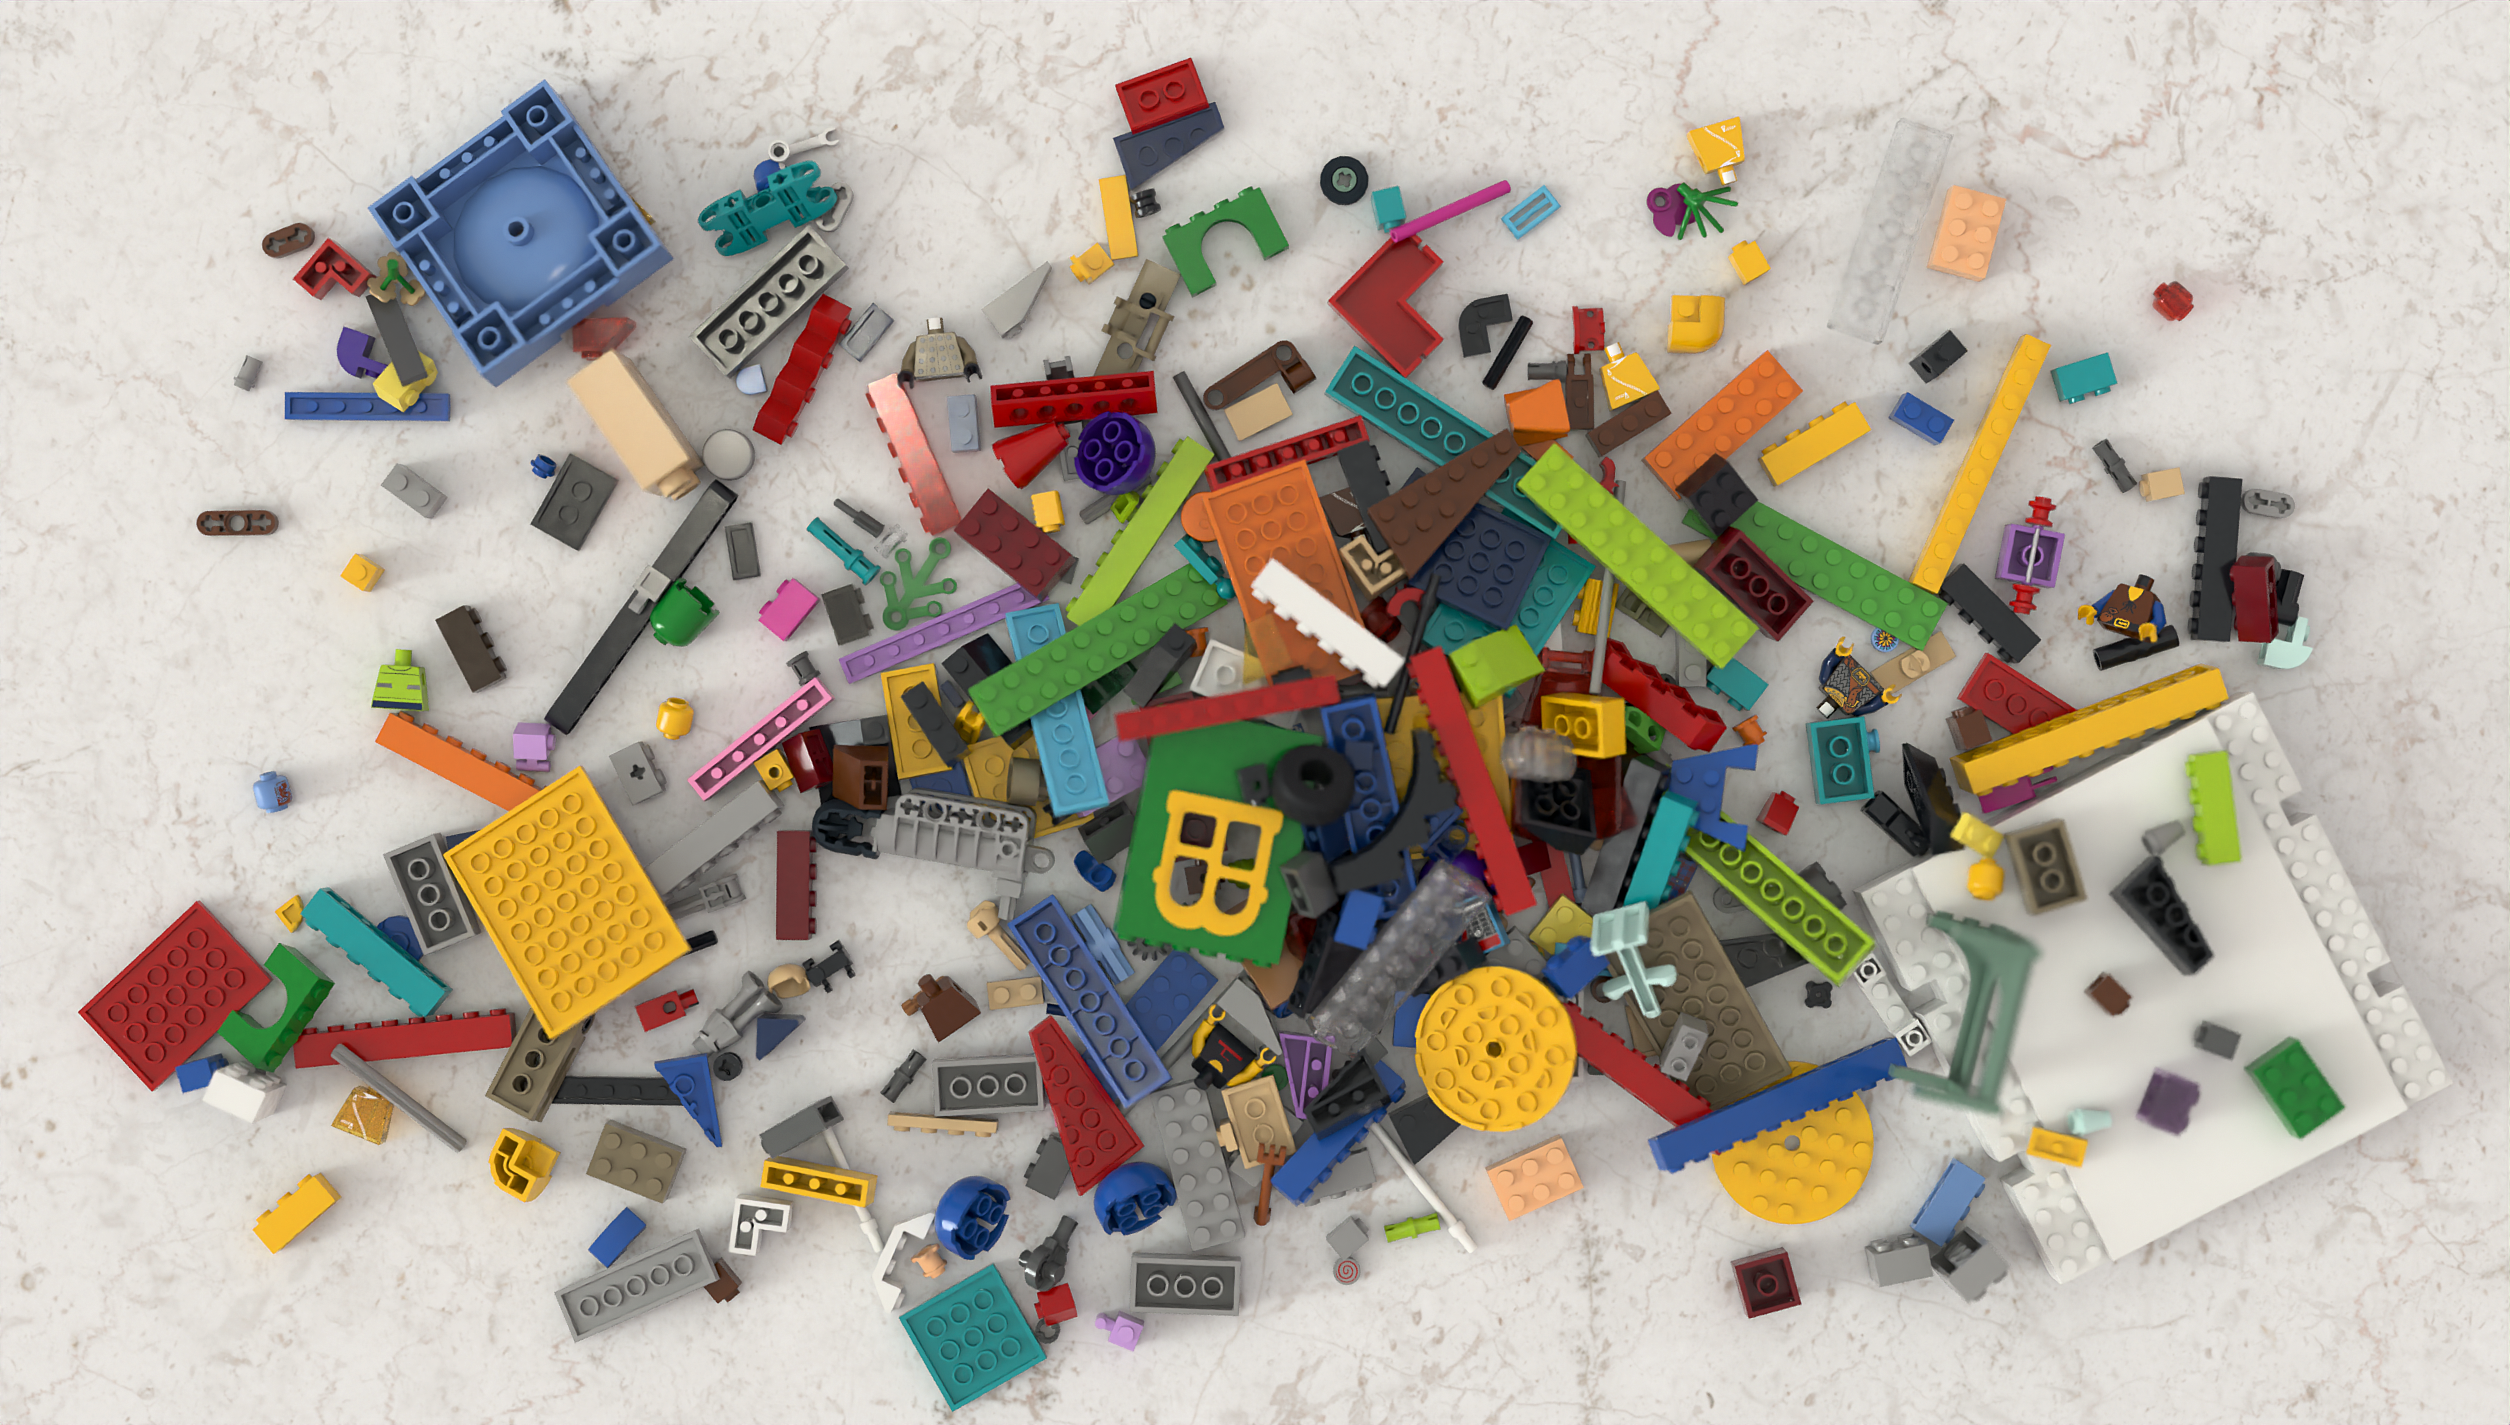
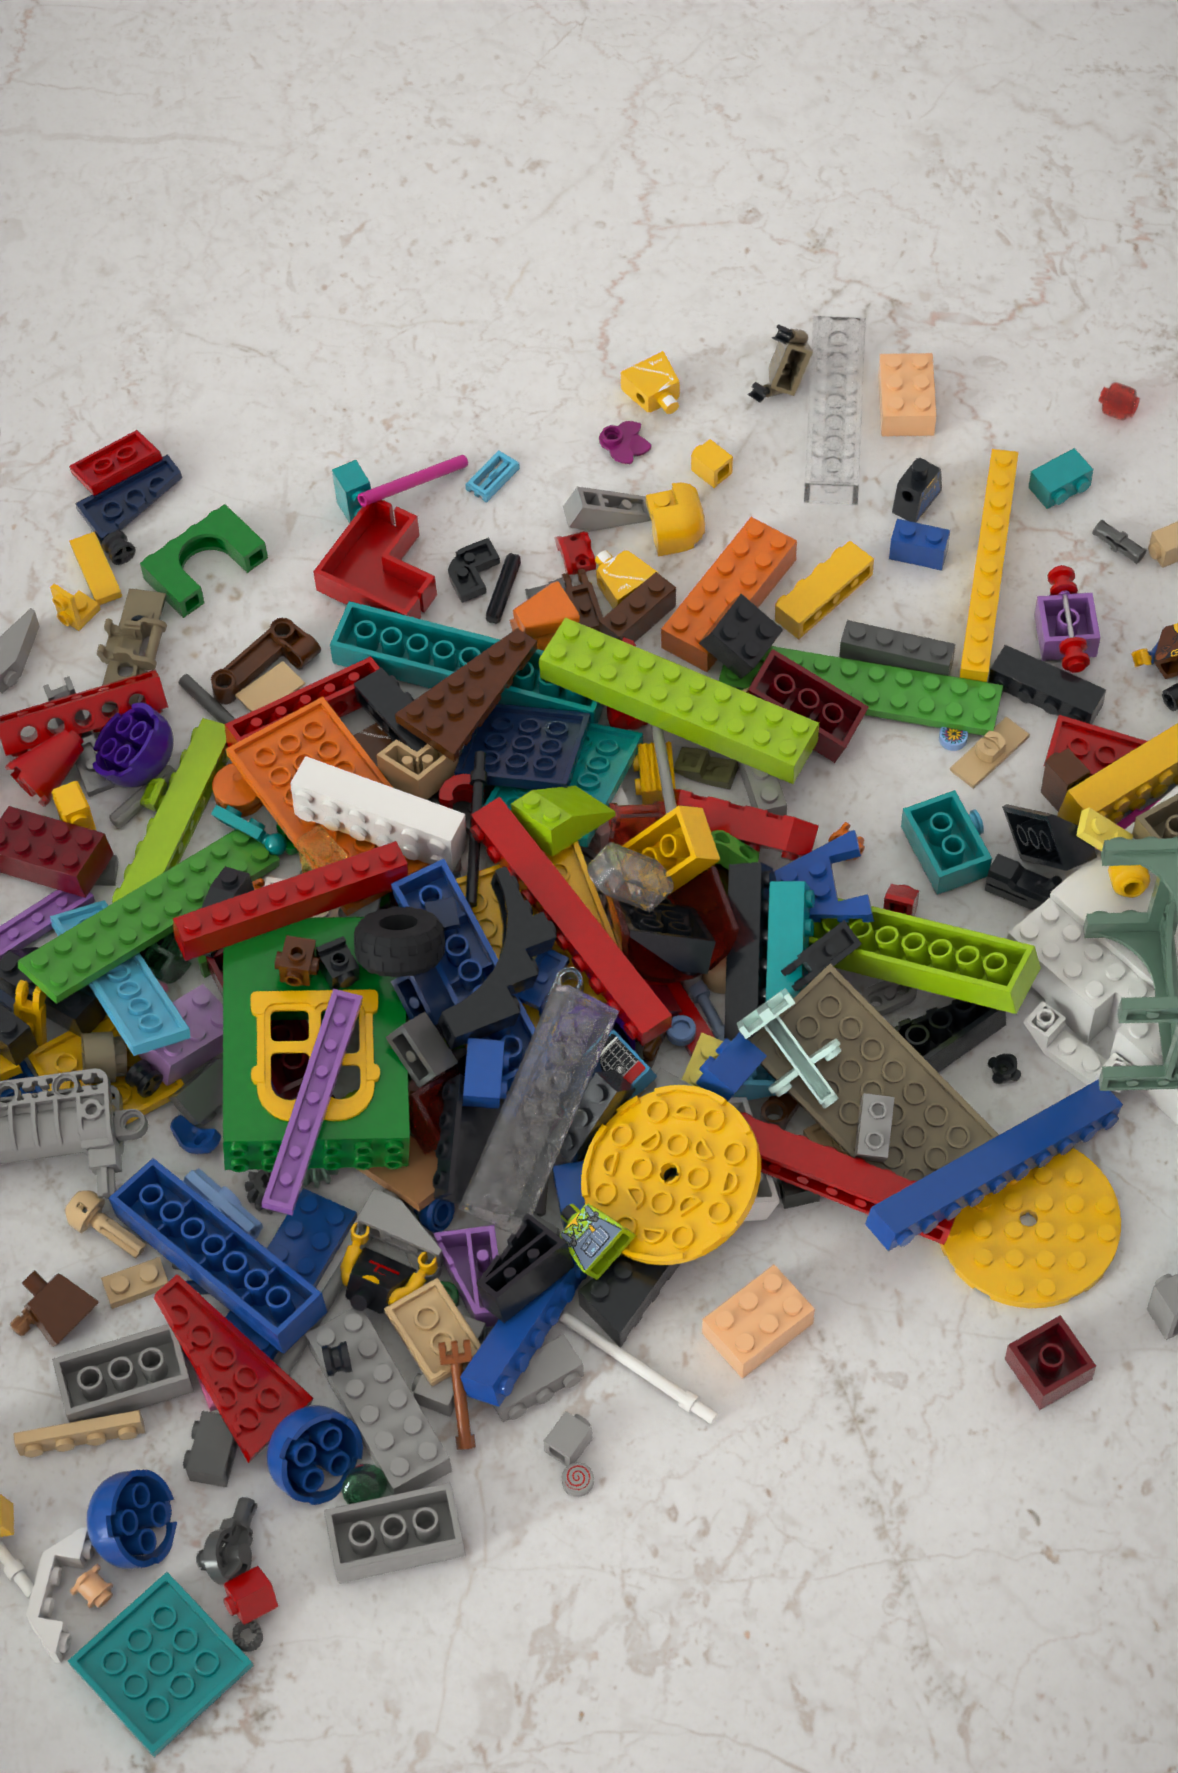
camera: 10 degrees left, 30 degrees down
(903, 1076) = (25, 1397): dark grey pin -> none
(1124, 1330) = (336, 1606): lavender brick -> none
(1169, 1237) = (364, 1484): none -> clear green head
(1171, 1134) = (336, 1359): none -> black wheel
(1202, 918) = (312, 1102): none -> medium lavender plate
(1225, 769) = (297, 961): none -> reddish brown brick
(1226, 1135) = (403, 1355): tan plate -> none
(1330, 176) = (307, 501): black bush -> none
(1412, 1227) = (638, 1411): lime pin -> none
(1413, 1085) = (593, 1238): none -> torso
(1546, 884) = (682, 1030): none -> medium blue tile
(1630, 290) = (604, 509): none -> light grey slope
(1686, 879) = (828, 949): none -> black hinge
(1695, 200) = (644, 426): green plant -> none
(1736, 683) = (817, 802): teal brick -> none
(1850, 685) = (931, 774): torso -> none
(1858, 171) = (786, 364): none -> dark tan torso
(1860, 537) = (896, 648): none -> dark grey brick

